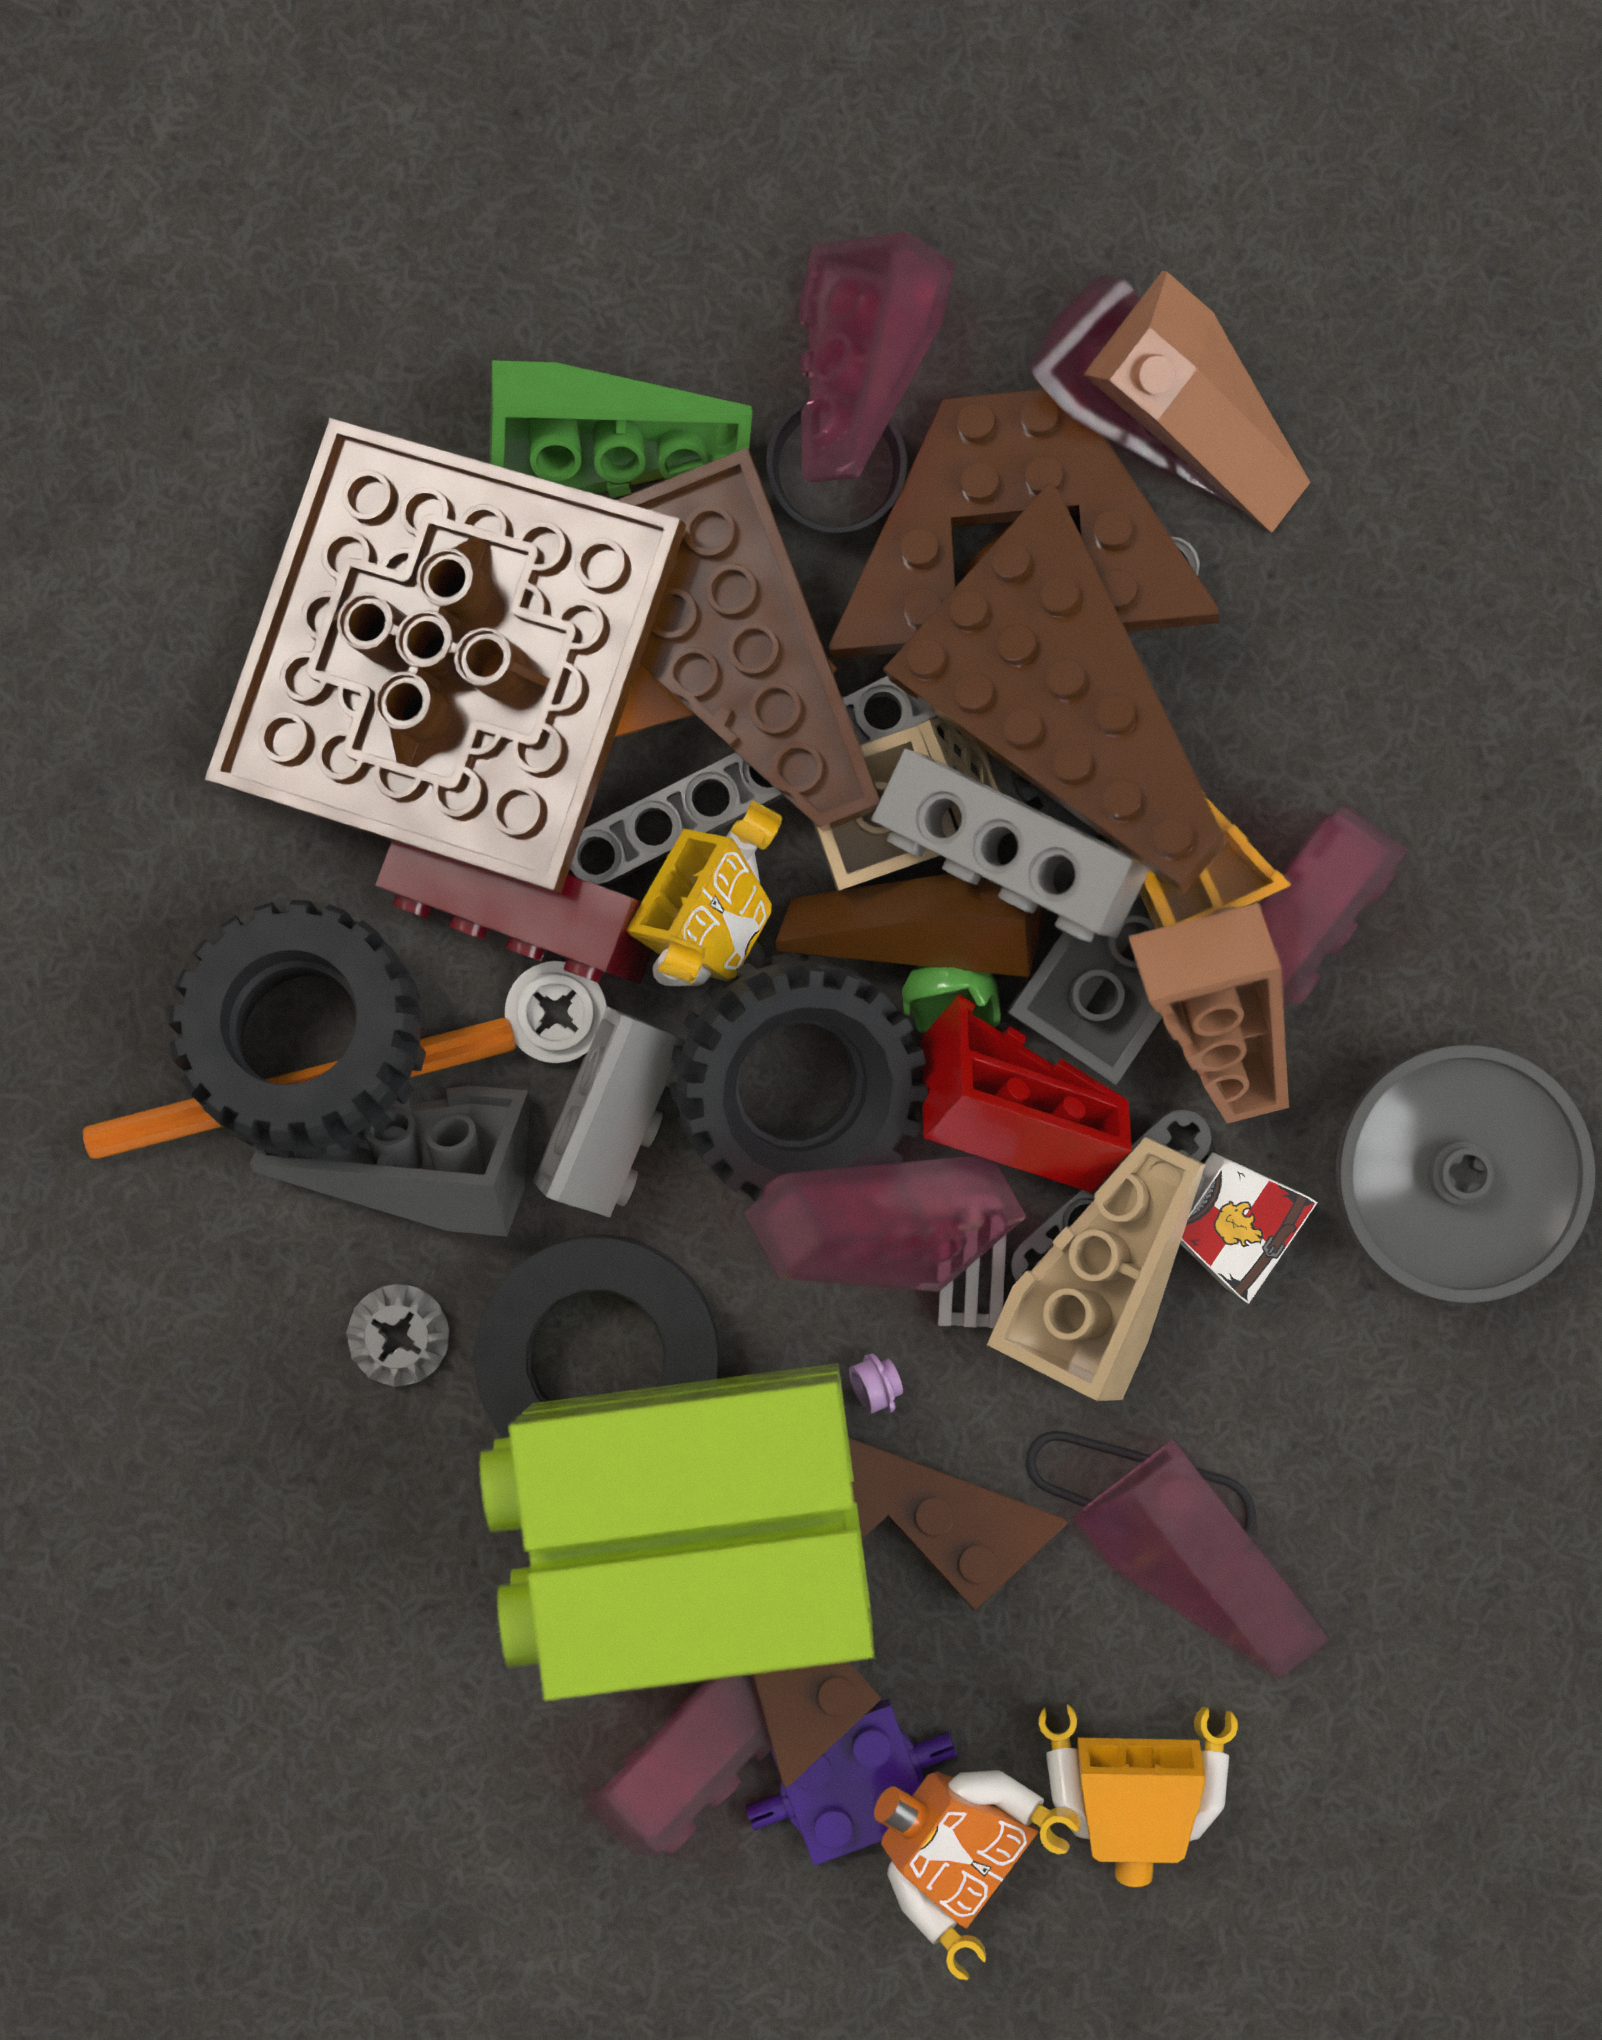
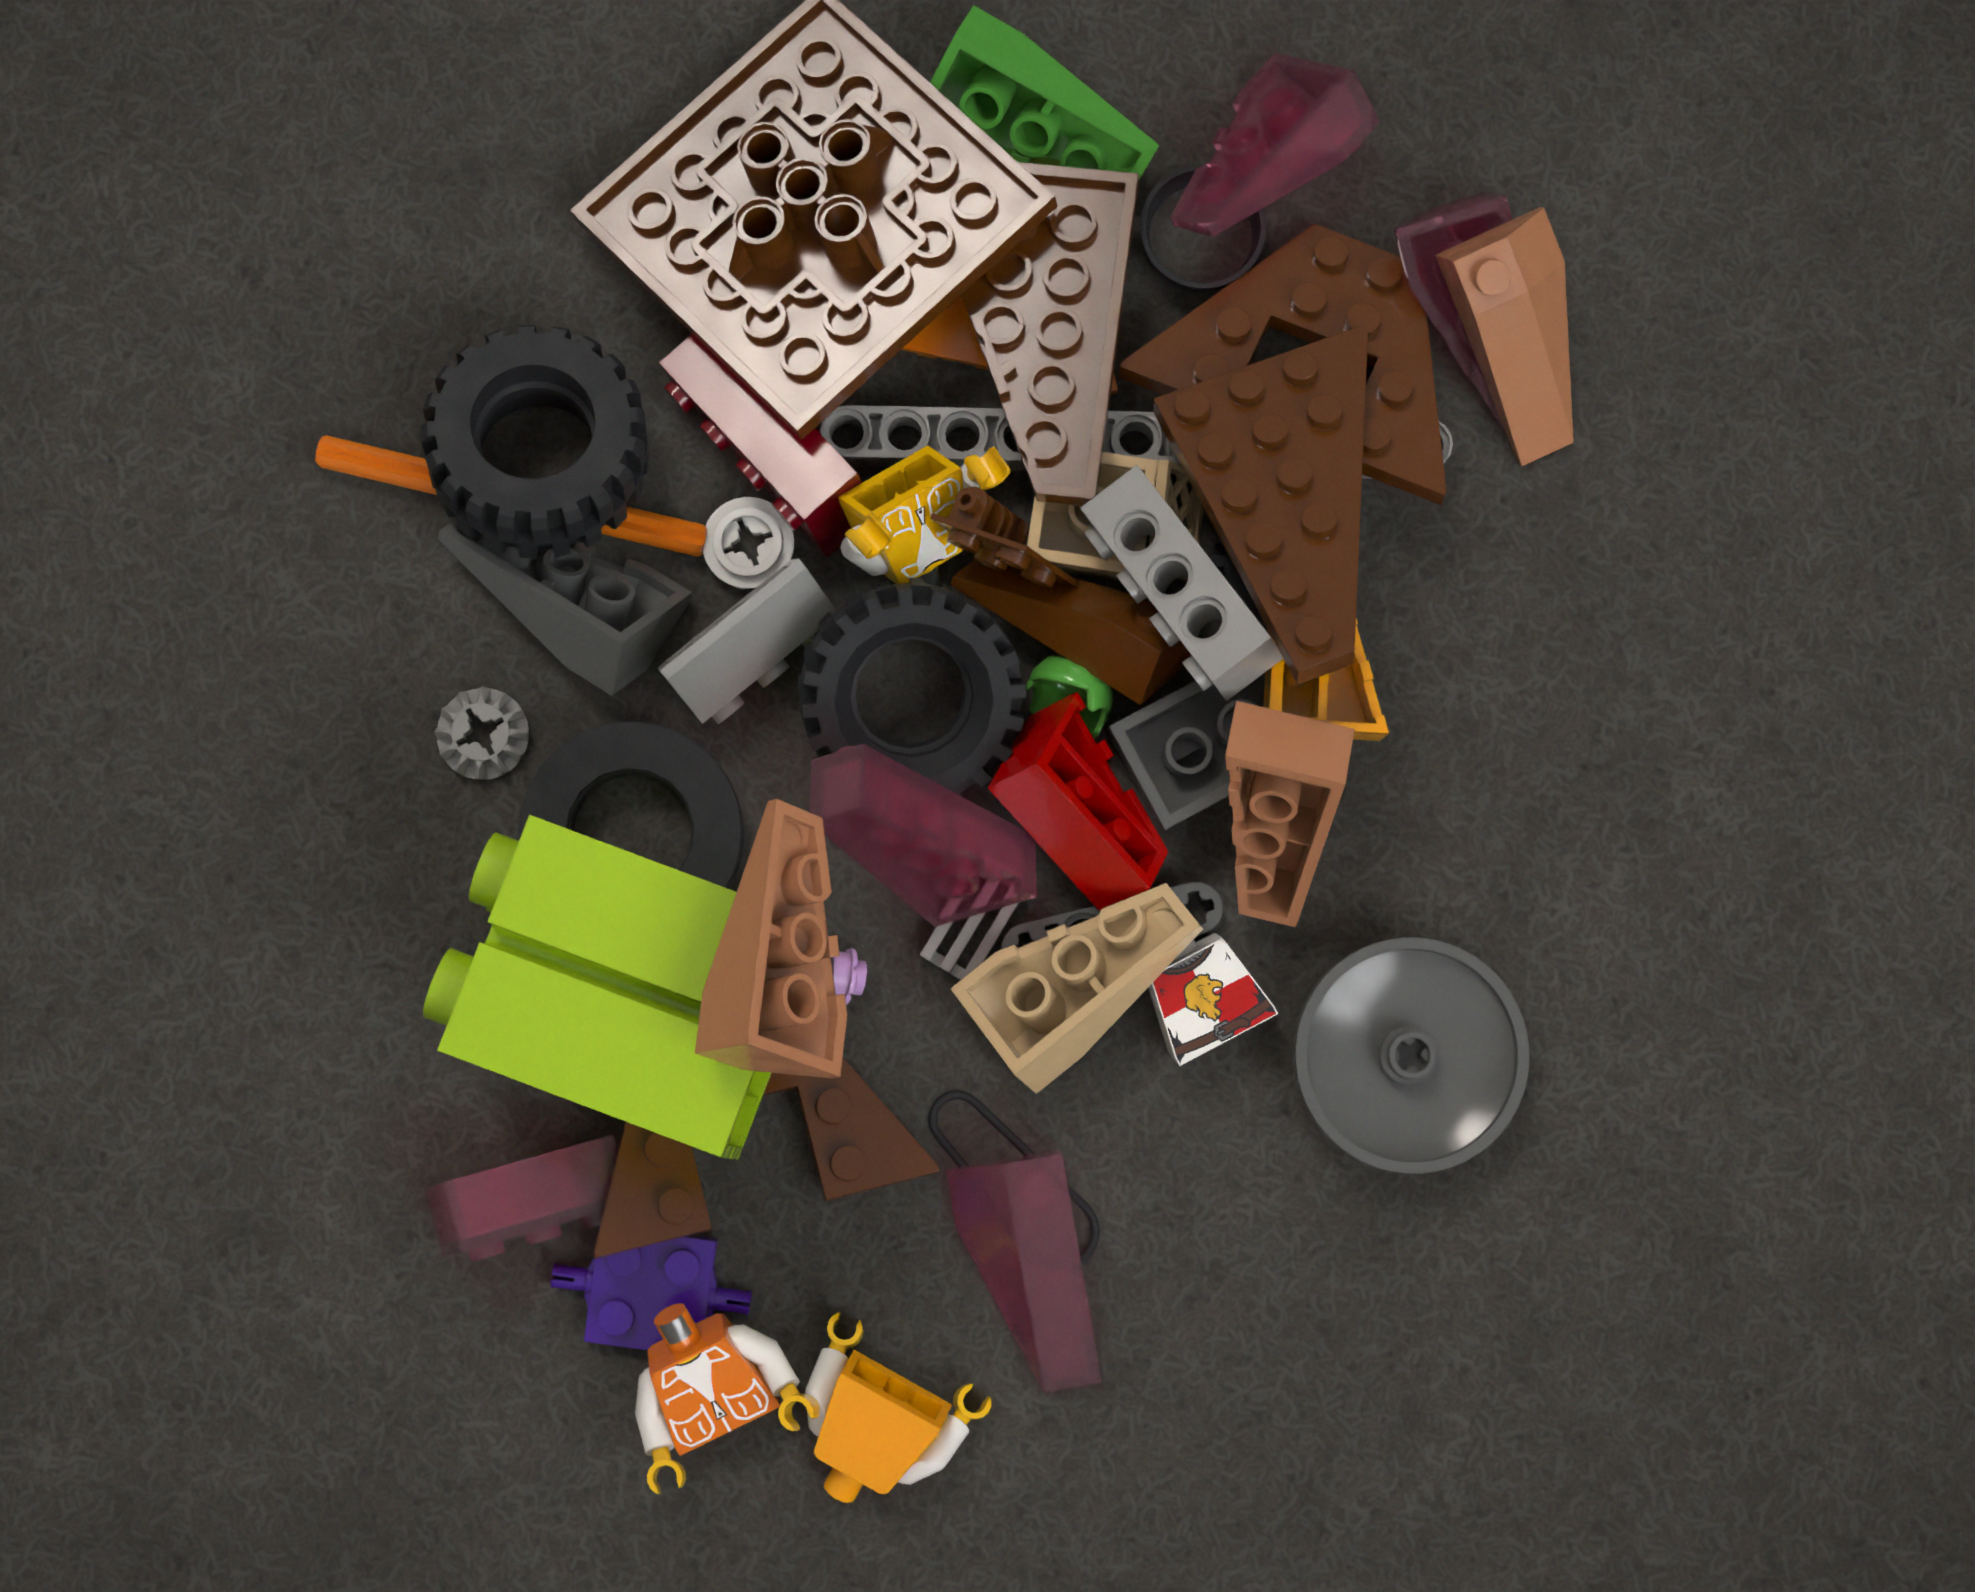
camera: 25 degrees right, 5 degrees down
(799, 884) = (997, 538): none -> reddish brown hinge
(830, 1459) = (772, 975): none -> nougat wedge
(1331, 881) = (1408, 769): clear pink wedge -> none

